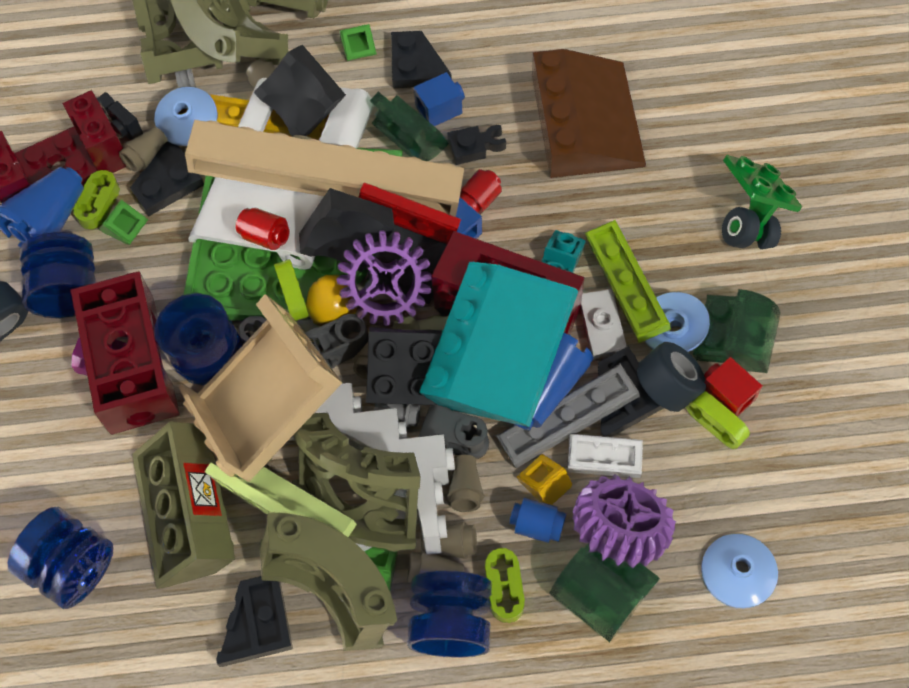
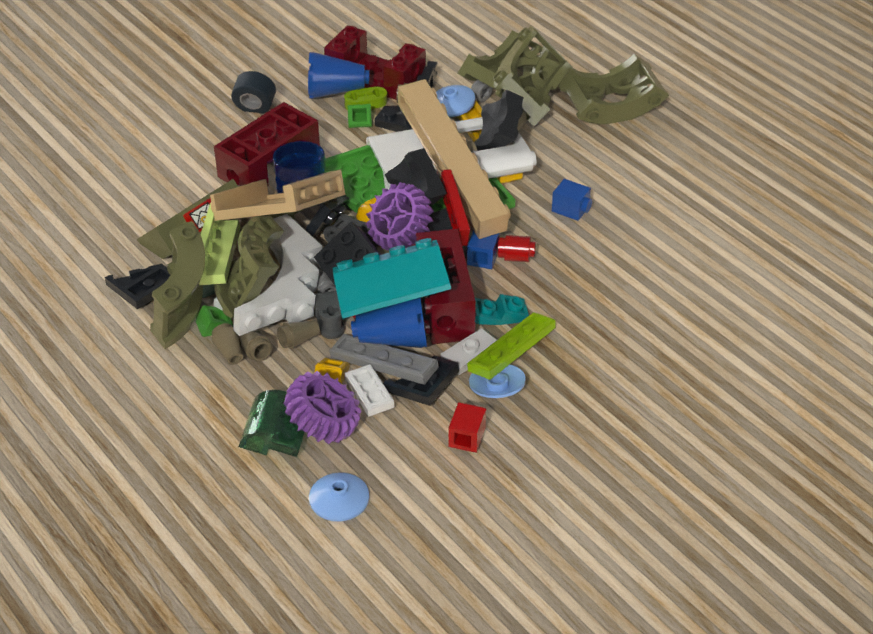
camera: 55 degrees right, 20 degrees down
(53, 267) = (299, 91): clear blue wheel -> none
(60, 557) = (123, 184): clear blue wheel -> none
(262, 228) = (387, 152): red brick -> none
(291, 290) = (363, 191): lime beam -> none
(357, 42) = (584, 148): bright green slope -> none
(407, 128) = (532, 193): clear green brick -> none
(414, 59) = (597, 176): black wing -> none
(450, 614) = (205, 350): clear blue wheel -> none
(471, 145) = (555, 232): black plate -> none
(513, 583) = (242, 382): lime beam -> none
(537, 520) = (293, 367): blue brick -> none
(585, 113) = (630, 271): reddish brown slope -> none
(671, 376) = (446, 387): black wheel -> none
(718, 420) = (440, 434): lime beam -> none
(740, 329) = (521, 419): clear green brick -> none
(767, 193) = (649, 377): green plate -> none

